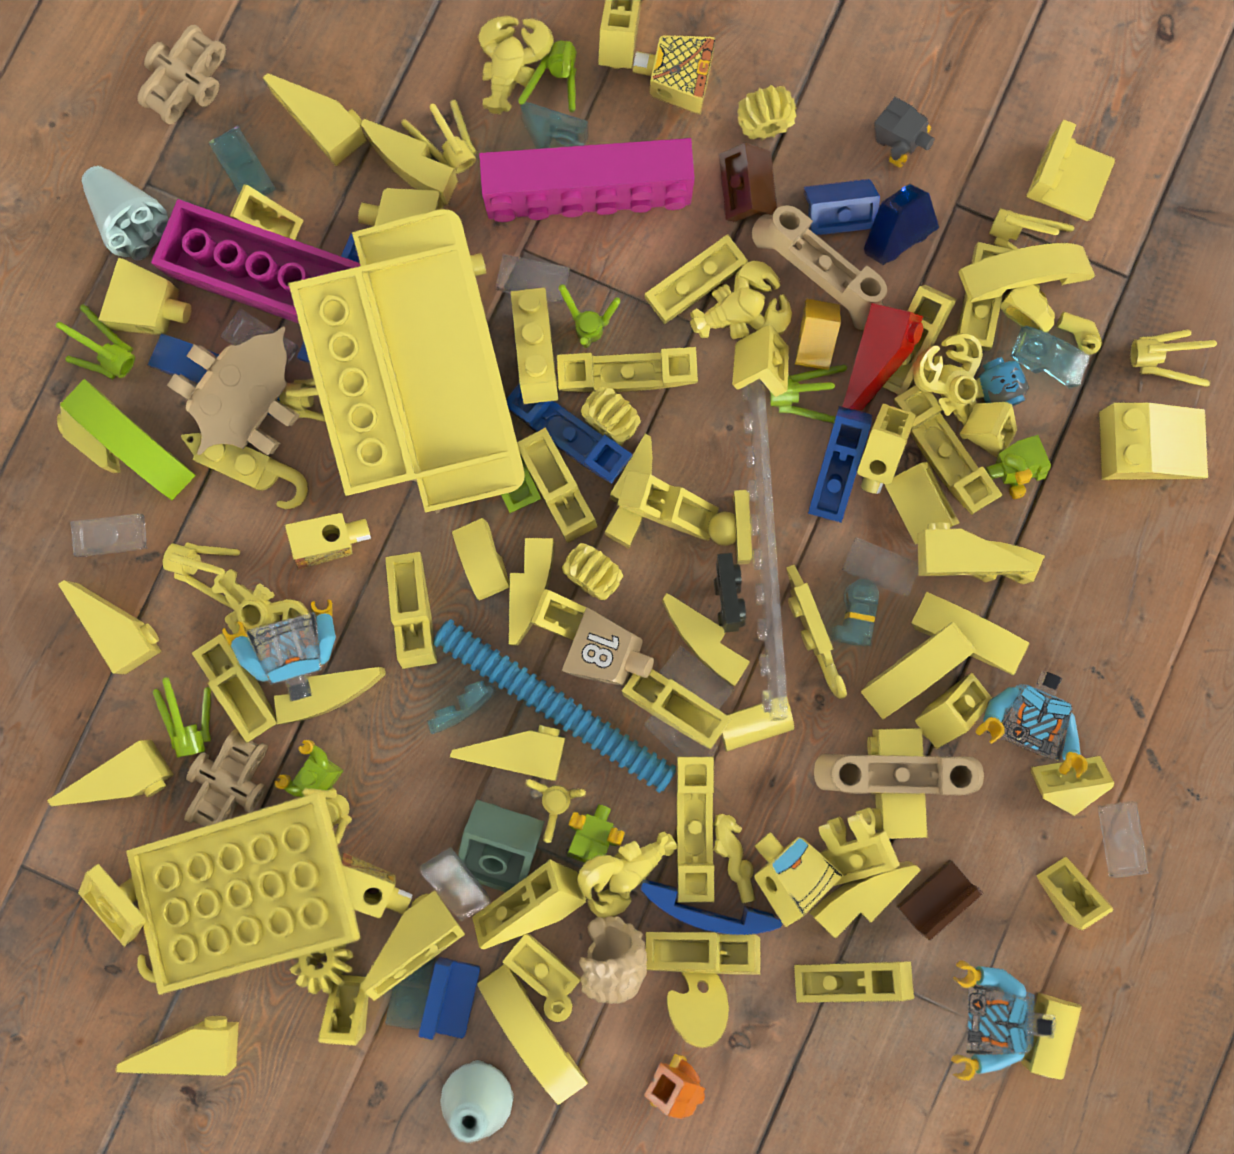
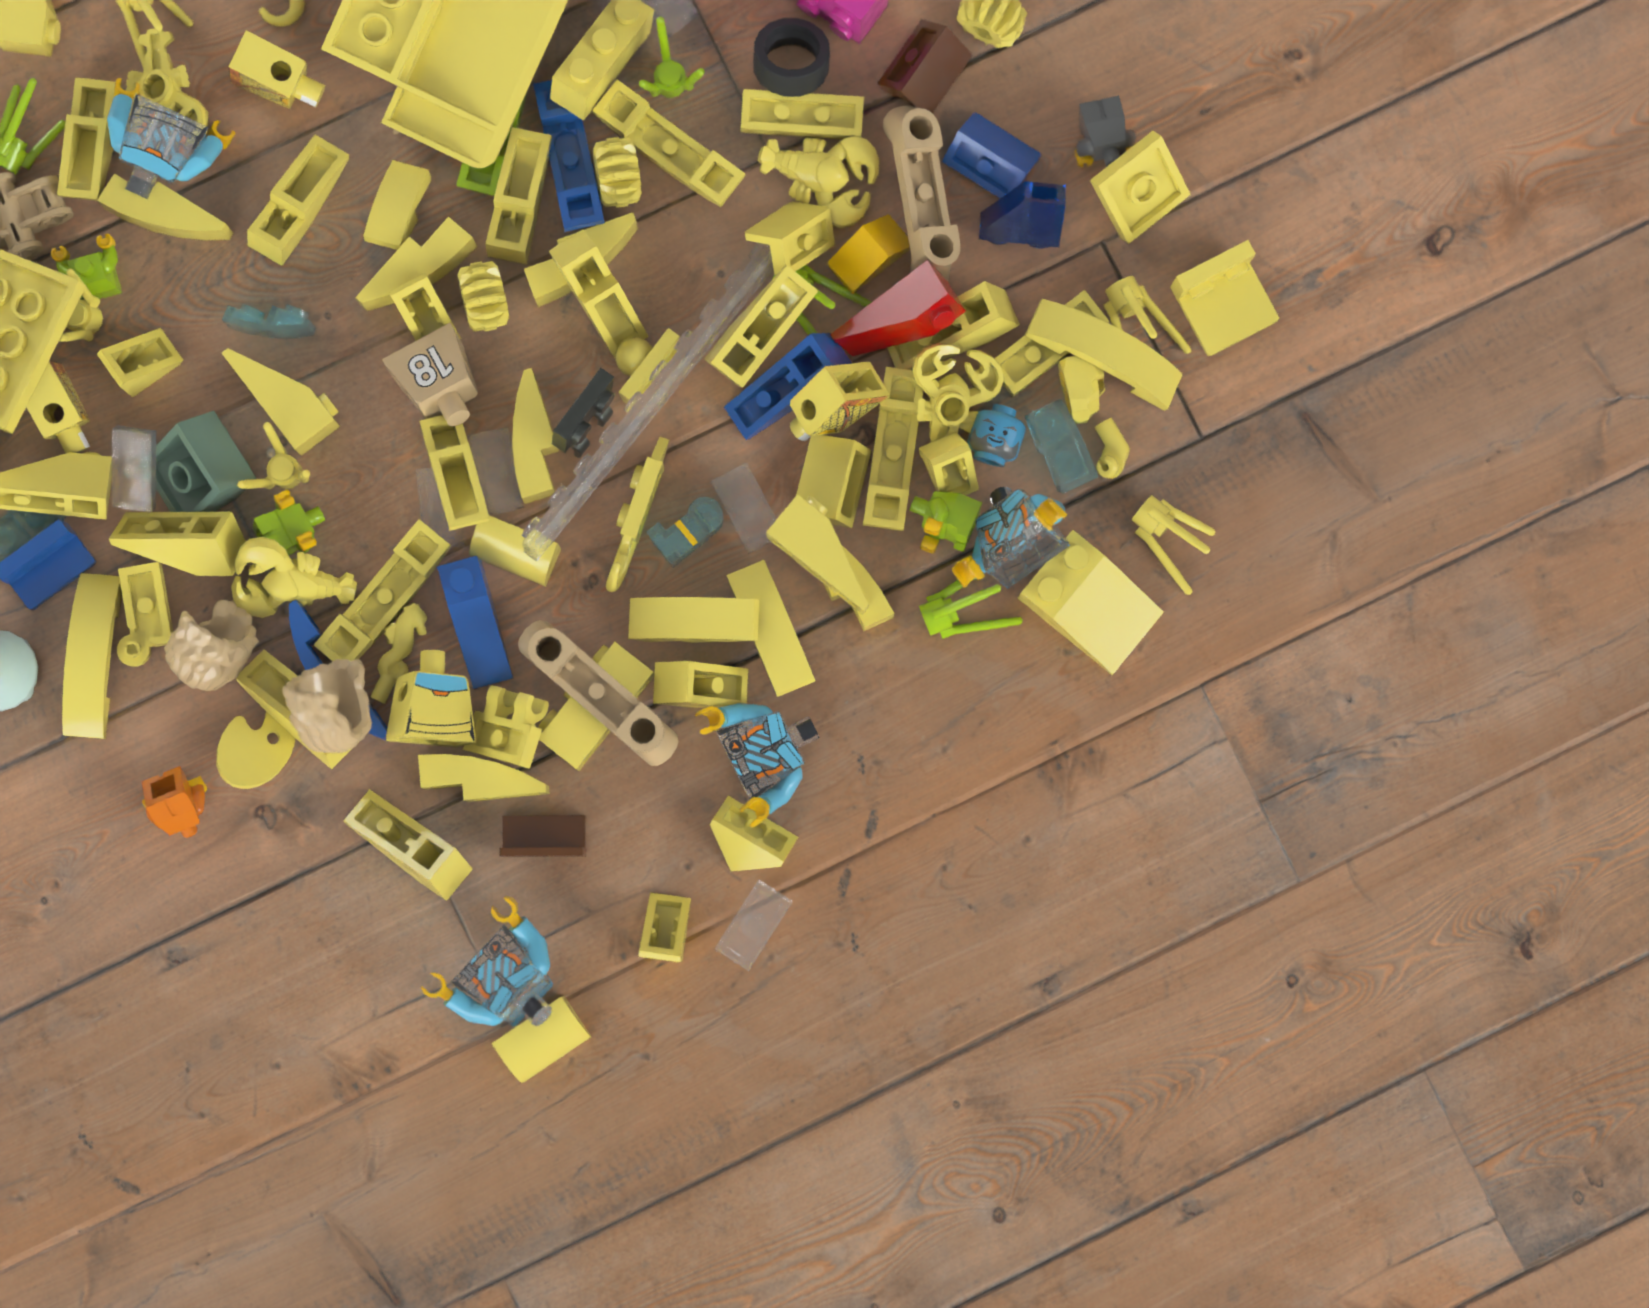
camera: 35 degrees right, 0 degrees up
(397, 807) = (140, 360): none -> light yellow slope
(554, 705) = (352, 386): dark azure piece -> none
(650, 227) = (791, 81): none -> black tyre
(734, 938) = (330, 706): none -> tan hair
(770, 793) = (475, 621): none -> blue slope
(795, 440) = (761, 326): none -> light yellow slope
(958, 144) = (1140, 187): none -> light yellow plate
(1069, 531) = (941, 613): none -> lime plant
(1080, 437) = (1013, 537): none -> torso

